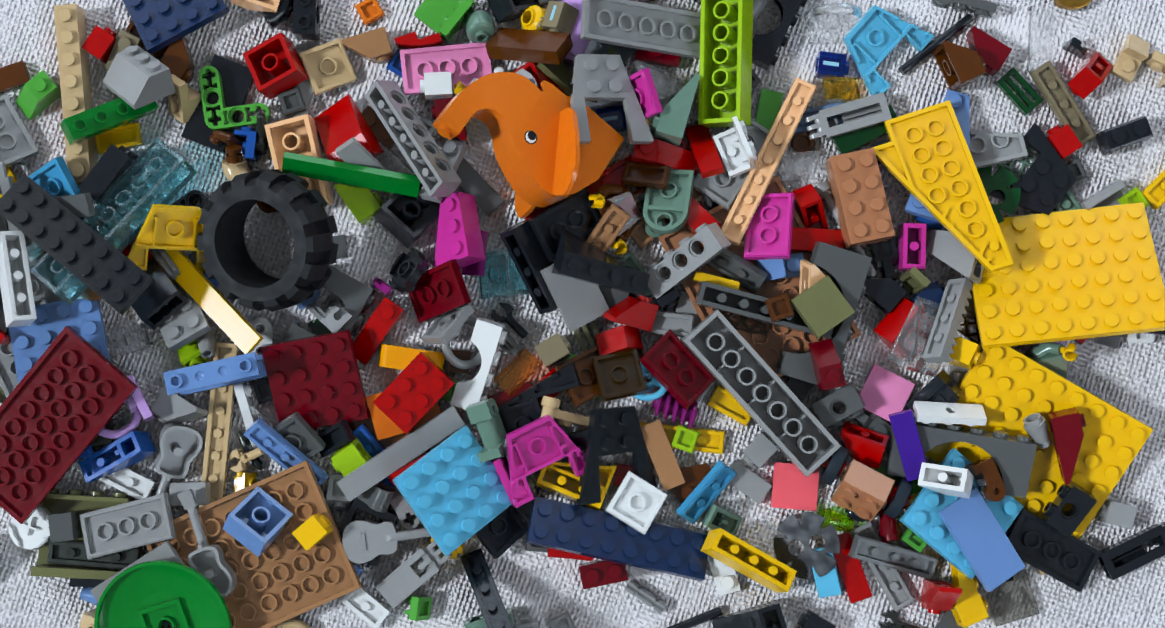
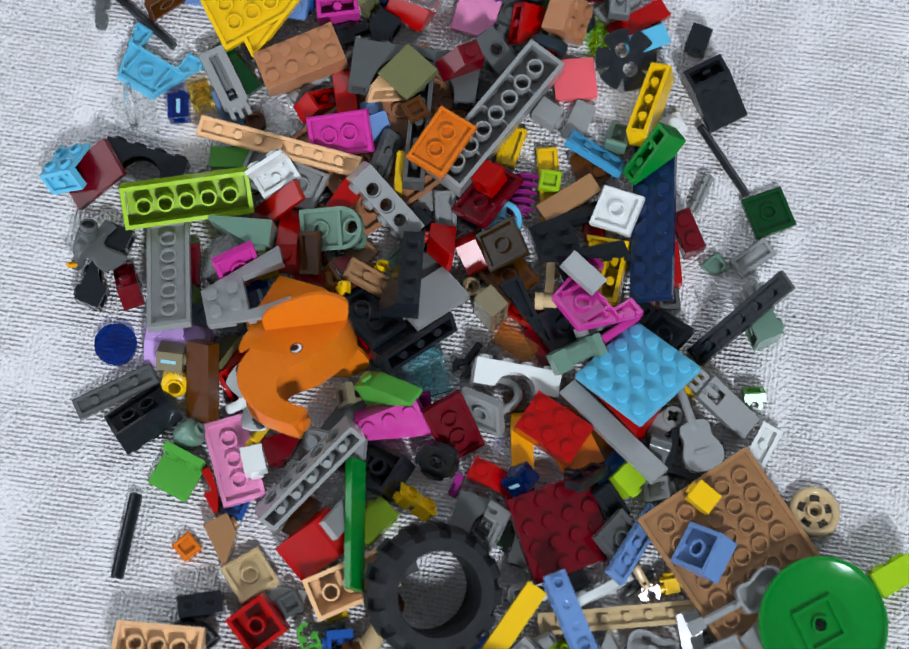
camera: 100 degrees left, 10 degrees down
(358, 415) = (584, 477): none -> black plate
(368, 246) = (423, 507): none -> yellow hinge
(369, 349) = (520, 479): none -> clear blue brick
(484, 230) = (385, 390): none -> bright green slope
(491, 188) = (346, 395): none -> dark tan tile
(566, 596) = (715, 264): none -> sand green tile
(567, 452) = (583, 273): none -> light grey tile
(580, 338) = (473, 282): none -> tan hinge
(692, 373) = (489, 178): none -> red brick
(692, 554) = (654, 152): none -> green slope
(737, 328) = (441, 142): none -> orange tile

